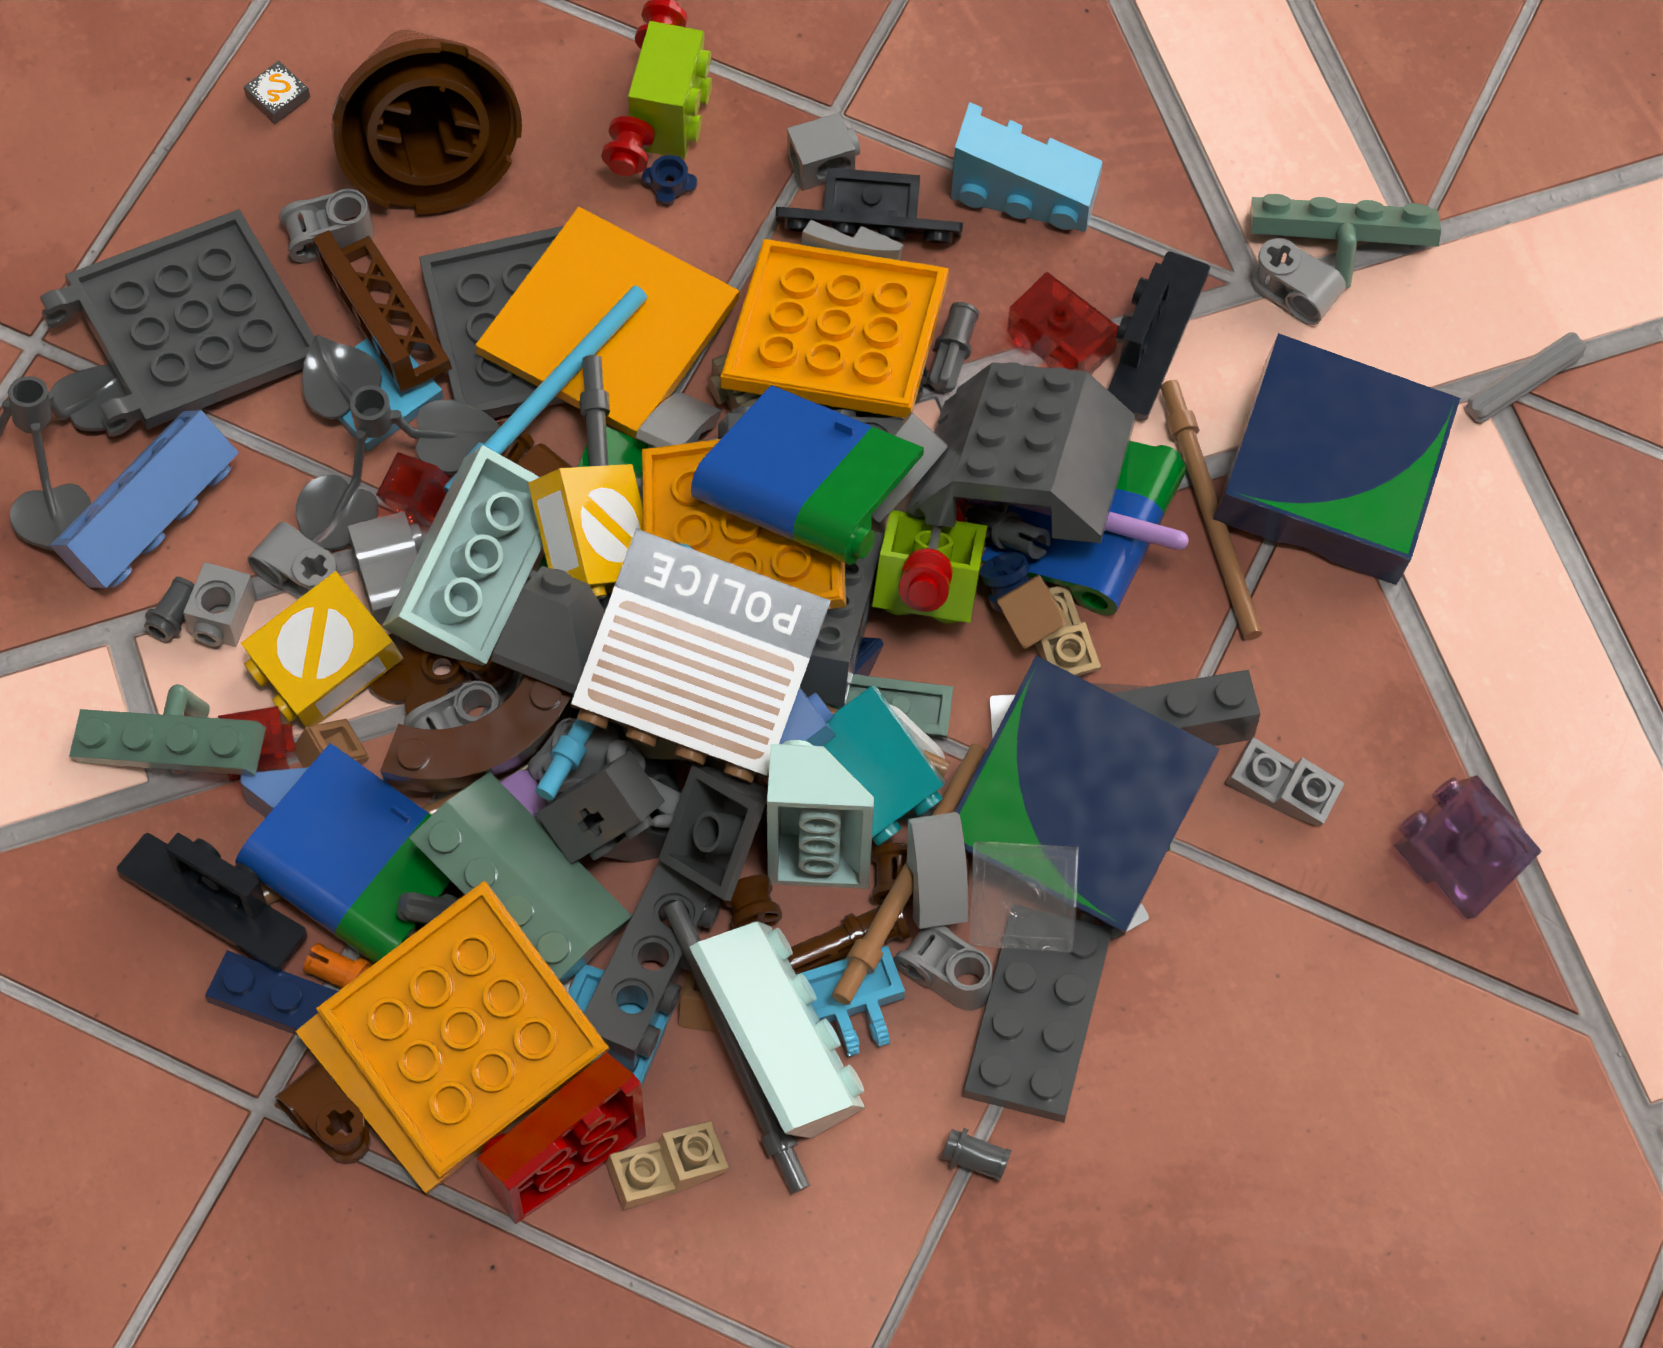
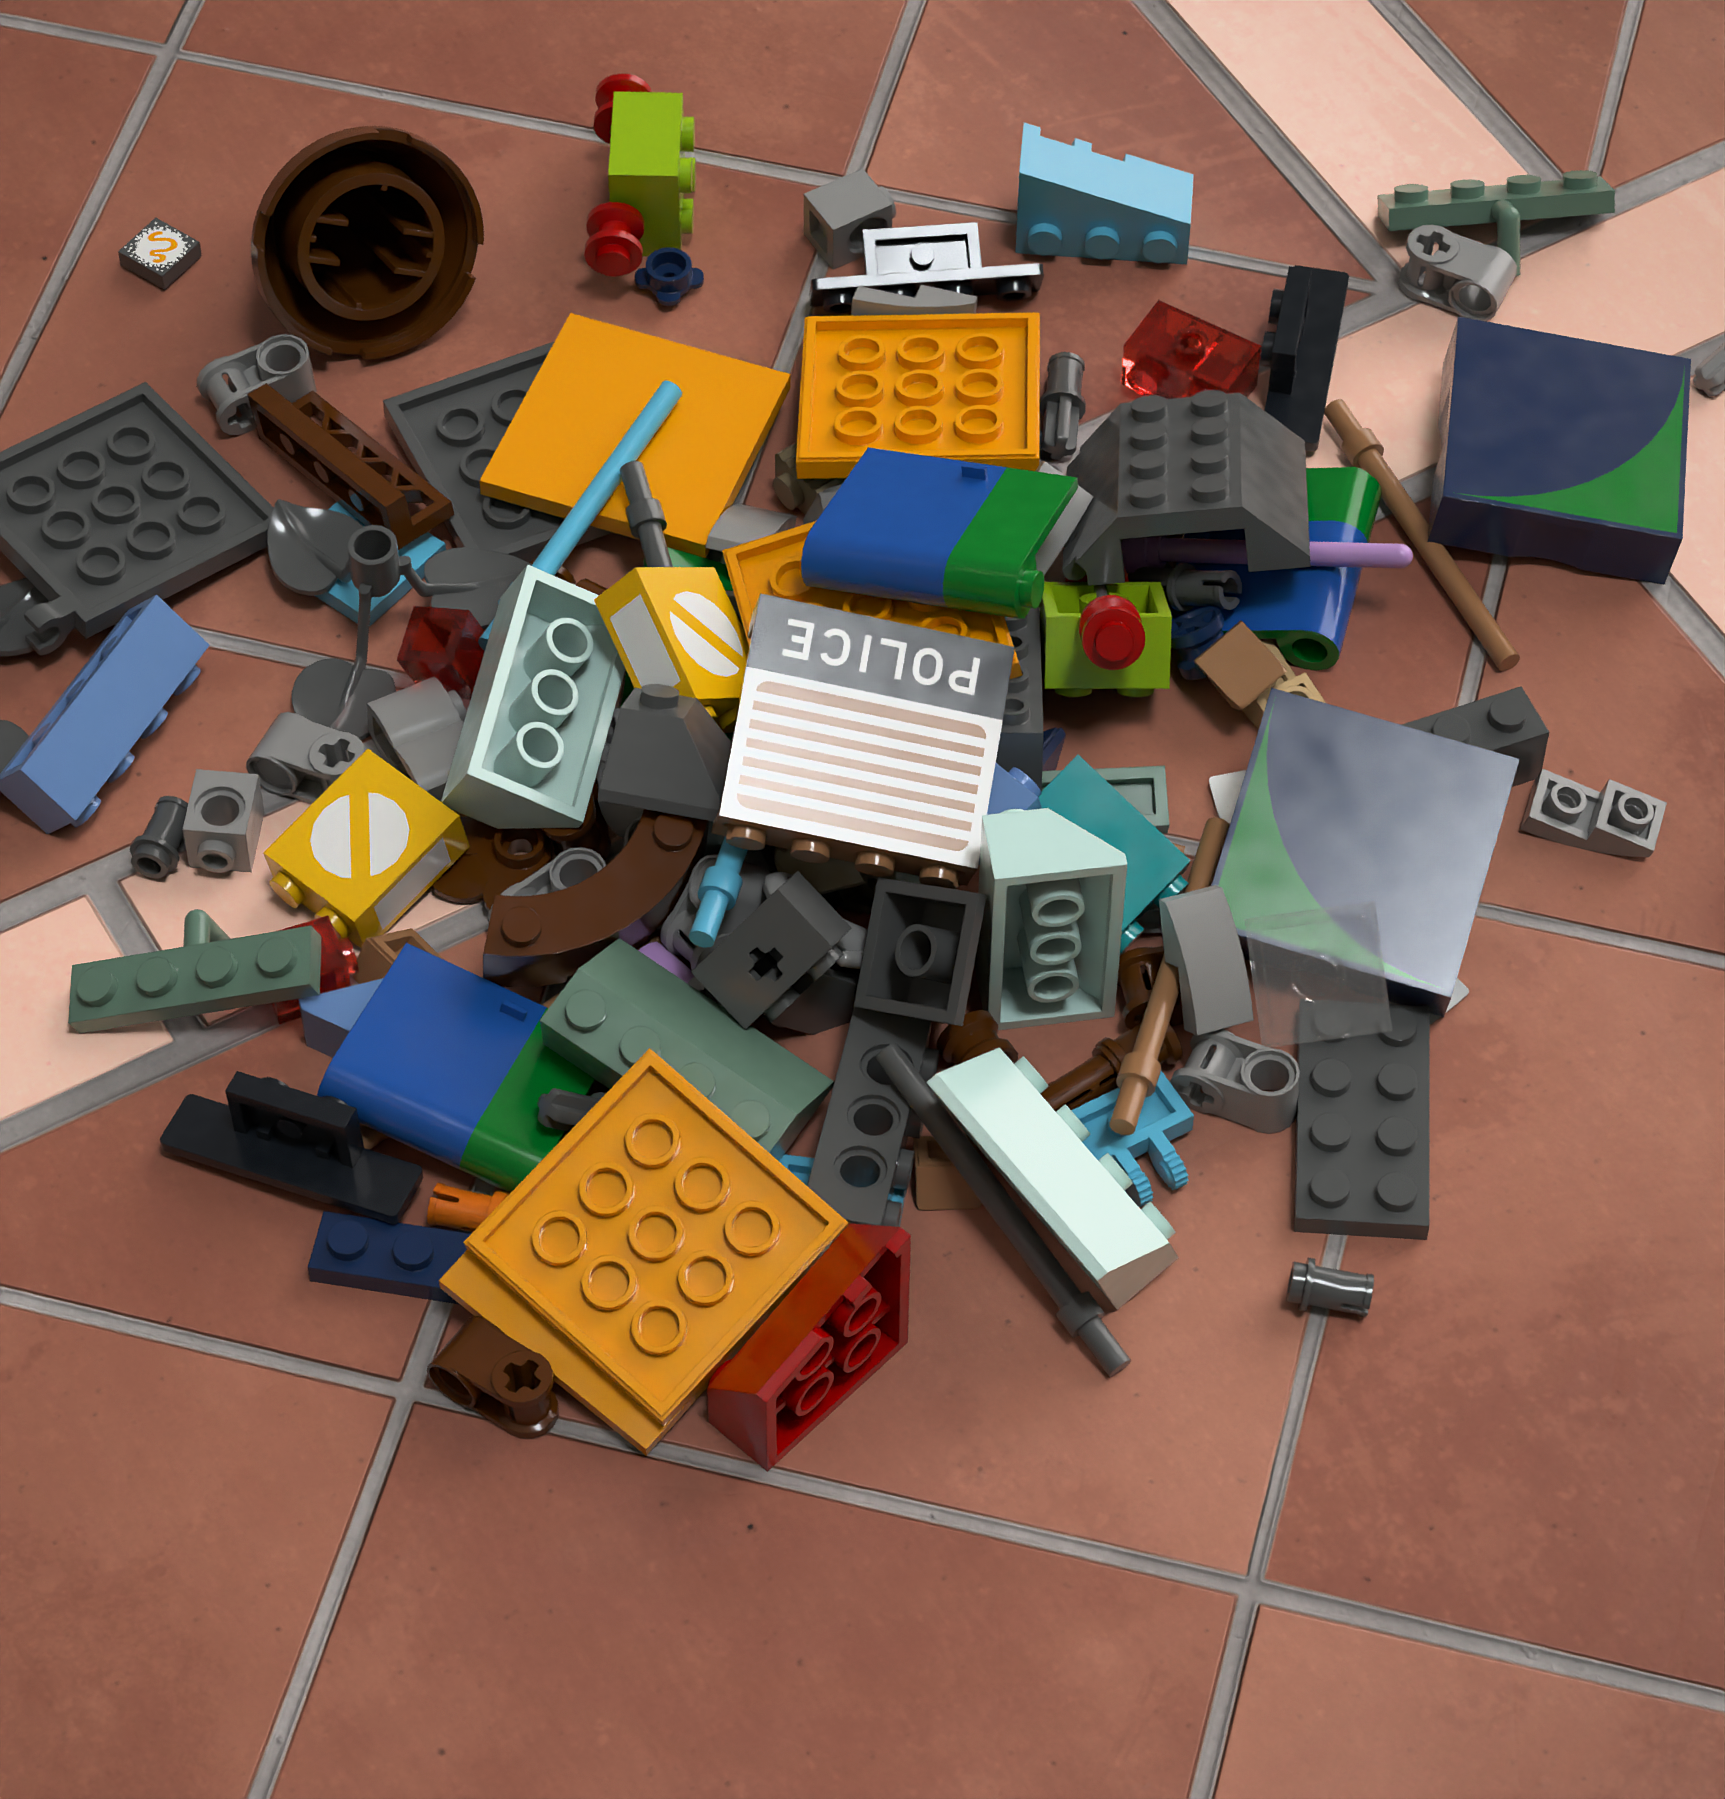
camera: 10 degrees left, 10 degrees down
(667, 1166) = (947, 1369): tan slope -> none

